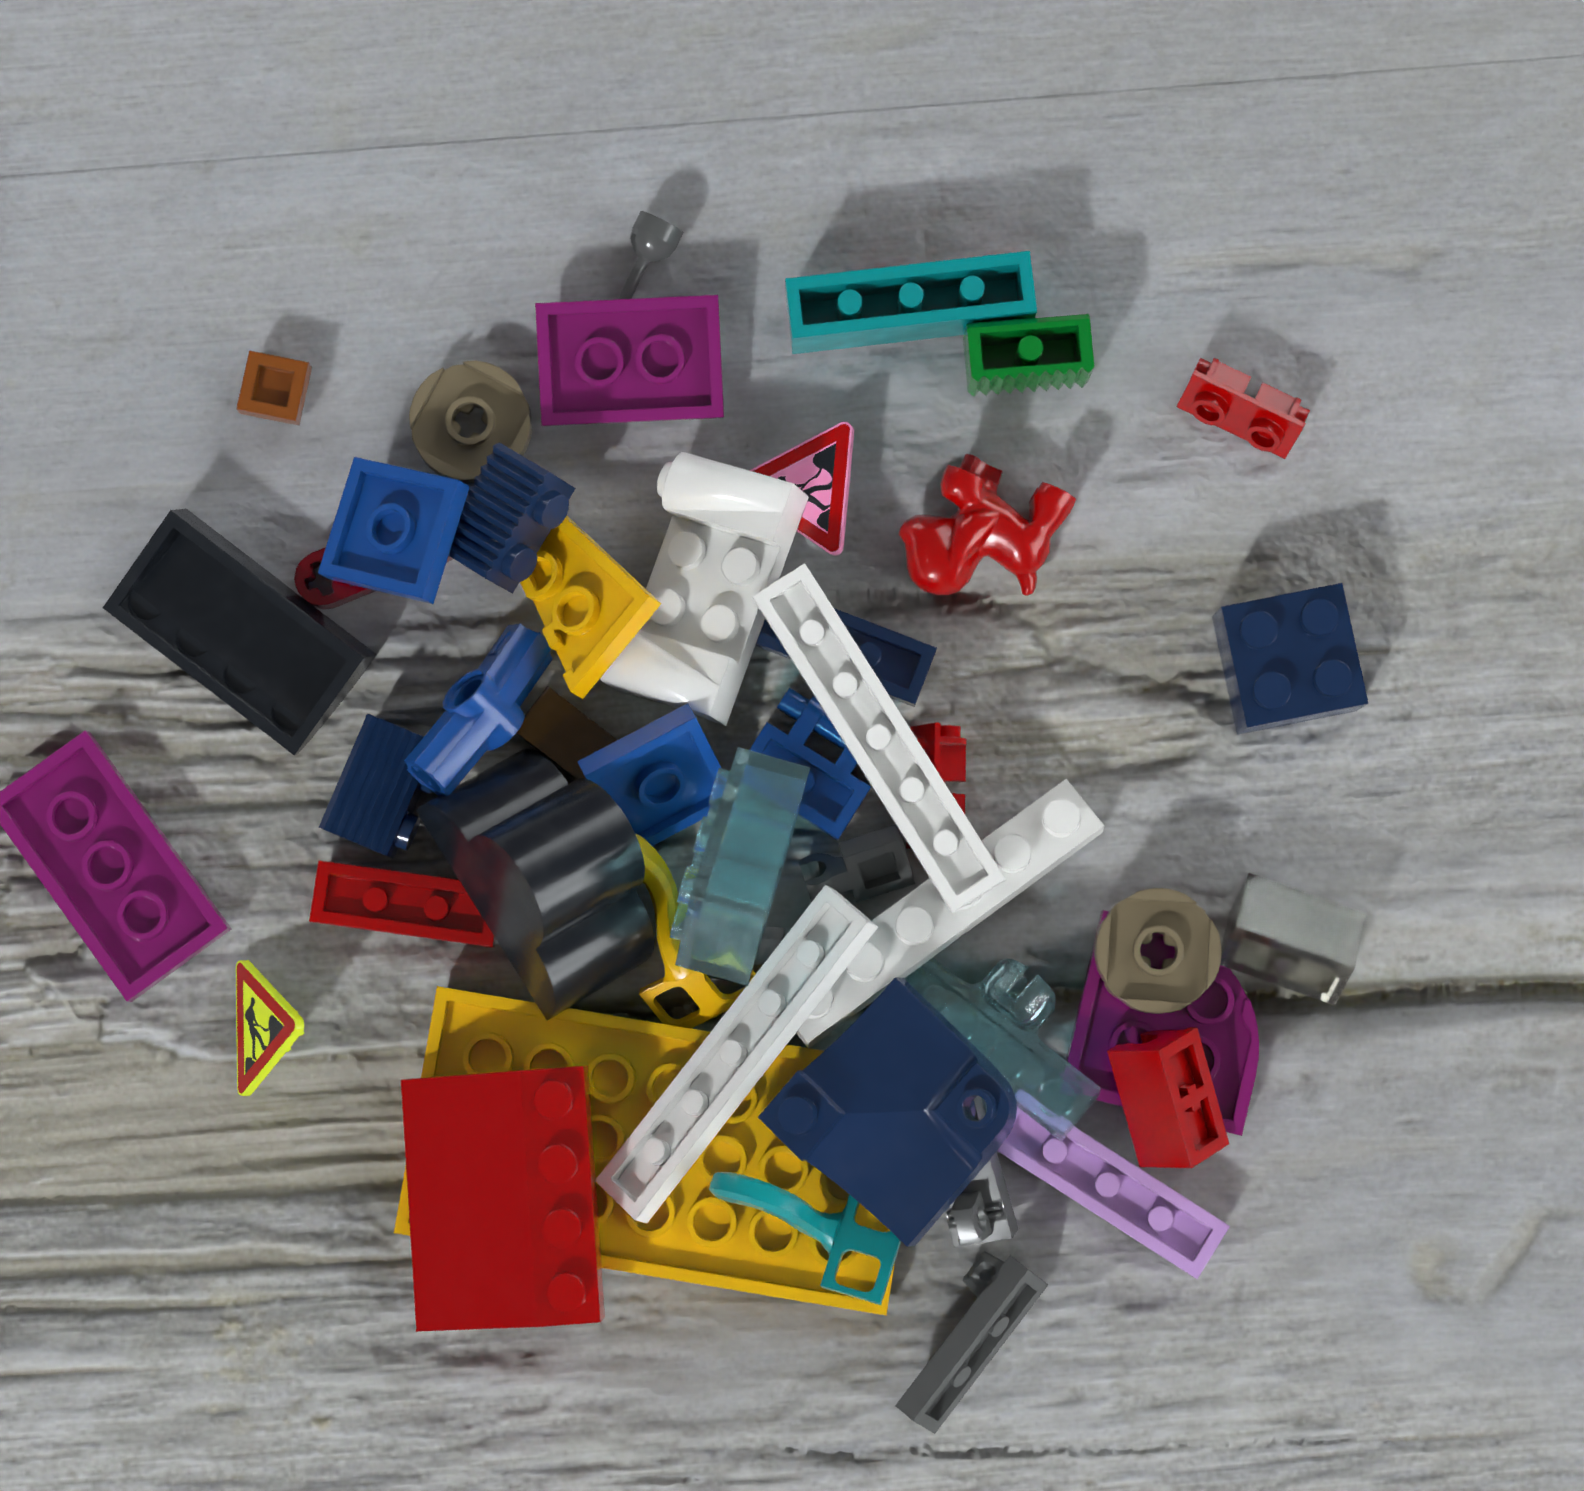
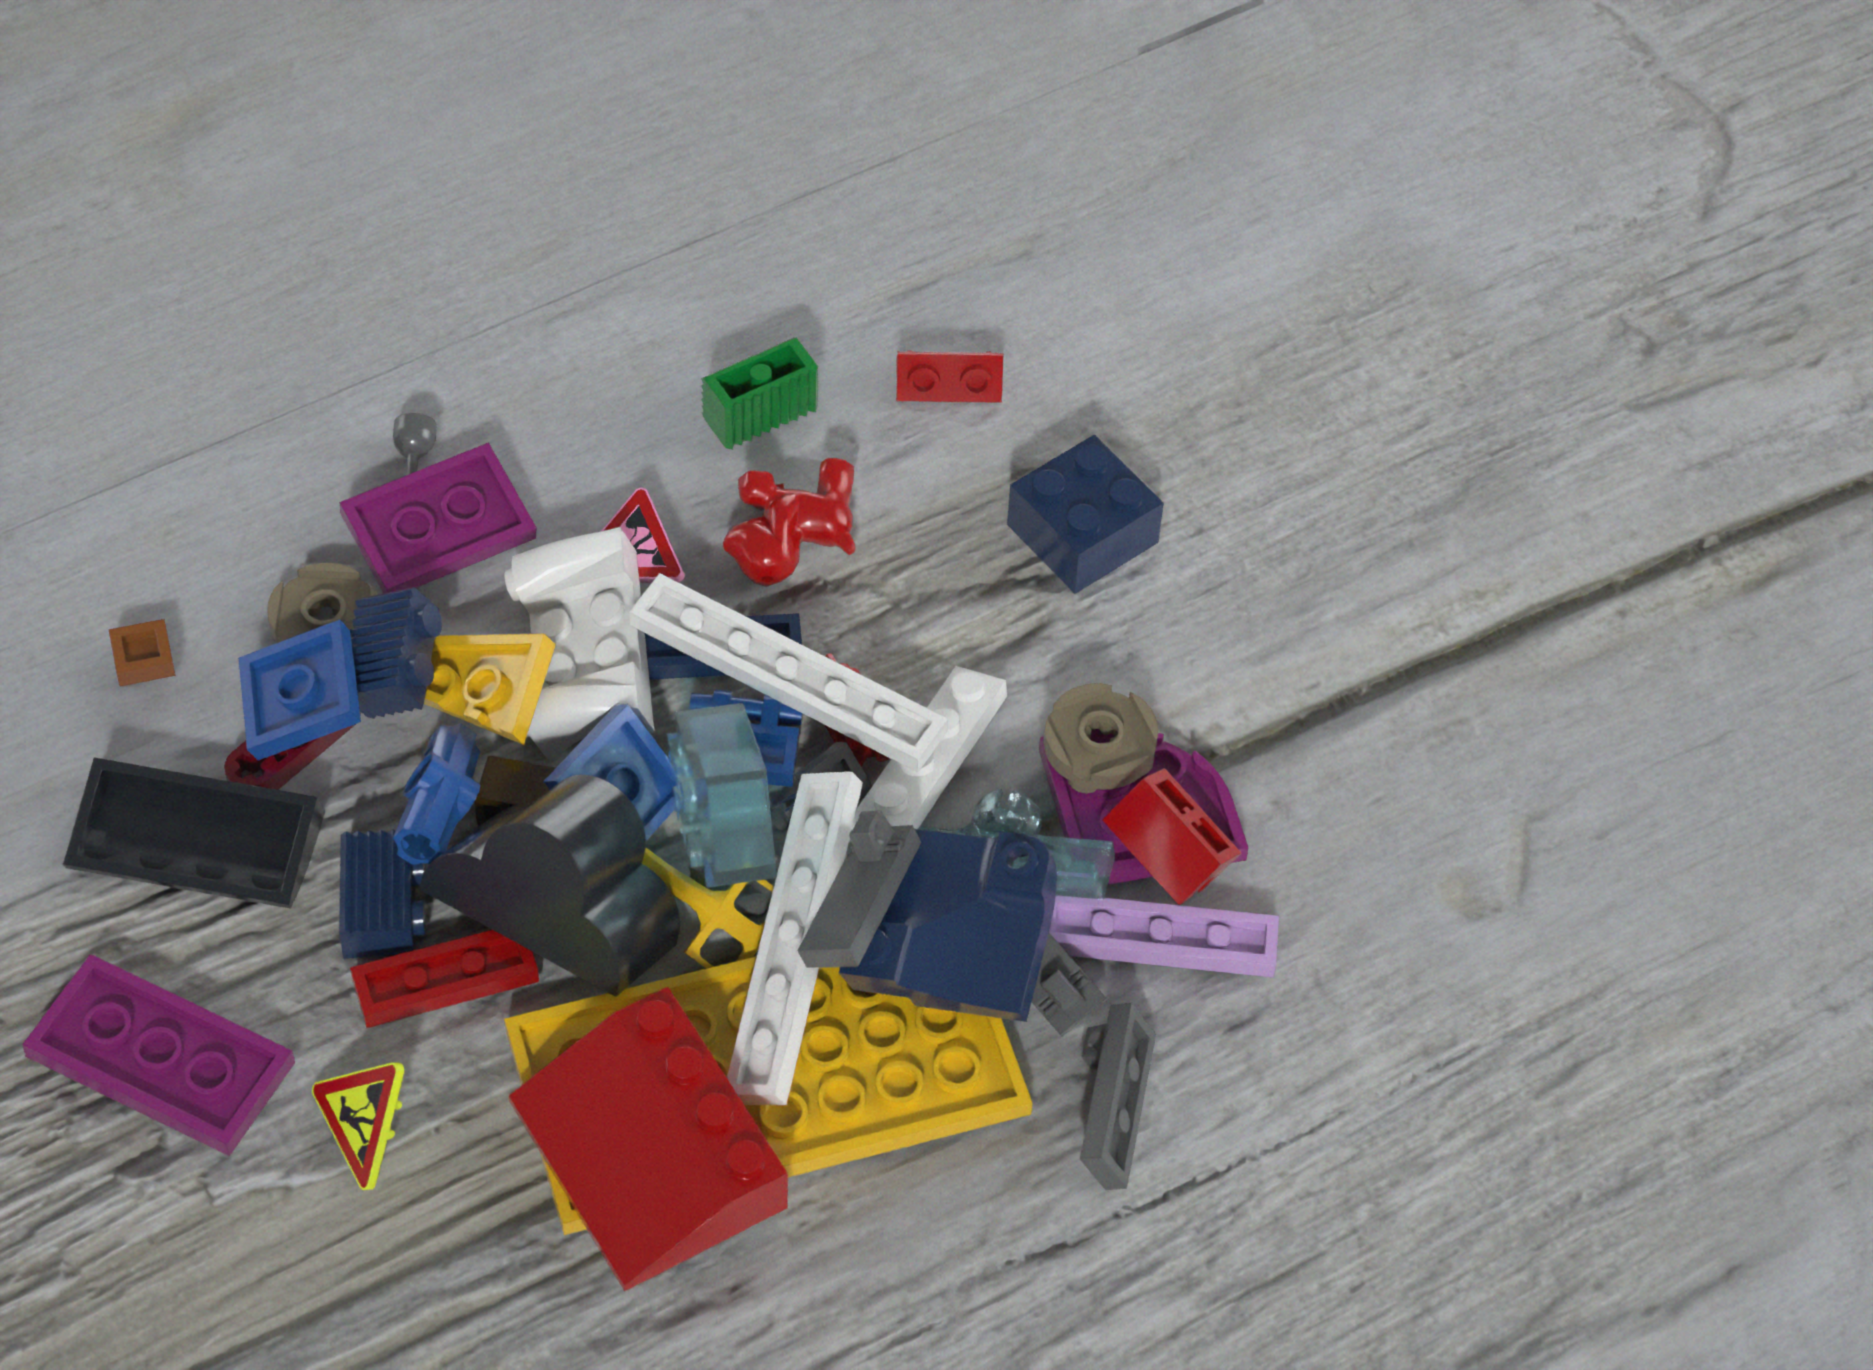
camera: 30 degrees left, 30 degrees down
(812, 1055) = (860, 892): none -> dark grey hinge
(834, 1231) = (950, 1050): teal piece -> none
(907, 301) = (637, 395): teal brick -> none
(1292, 939) = (1204, 691): clear smoke brick -> none

